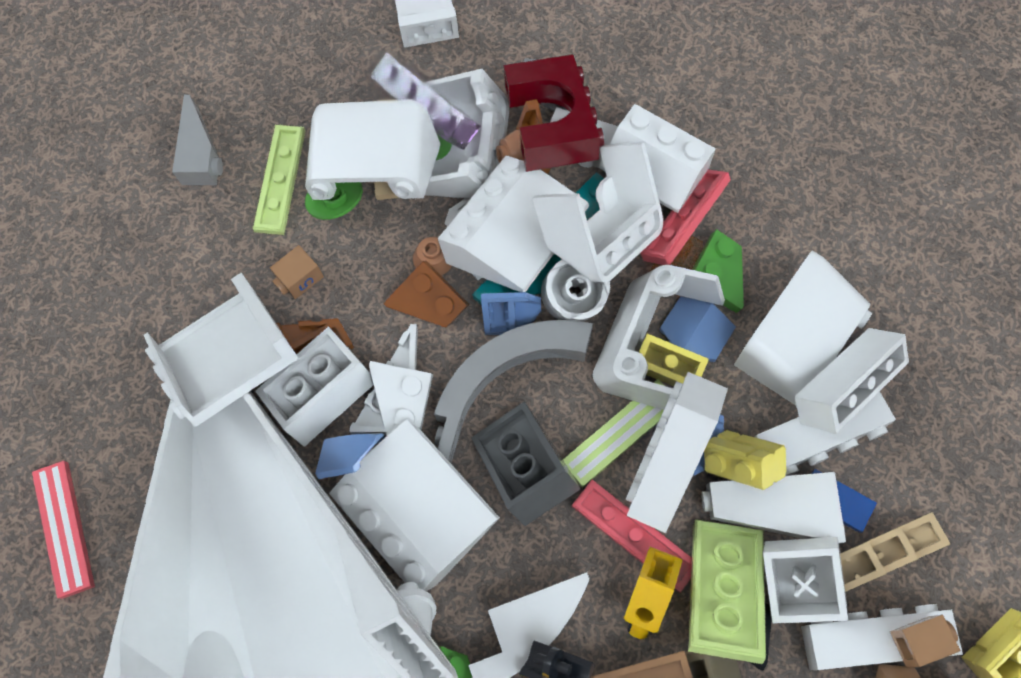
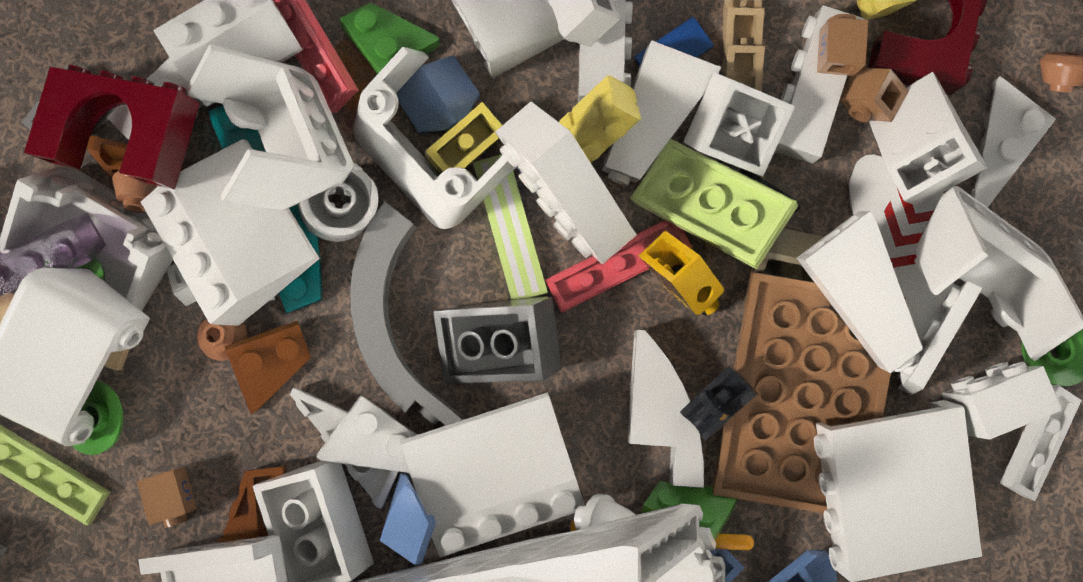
camera: 70 degrees left, 15 degrees up
(508, 311) = (328, 283): medium blue slope -> none

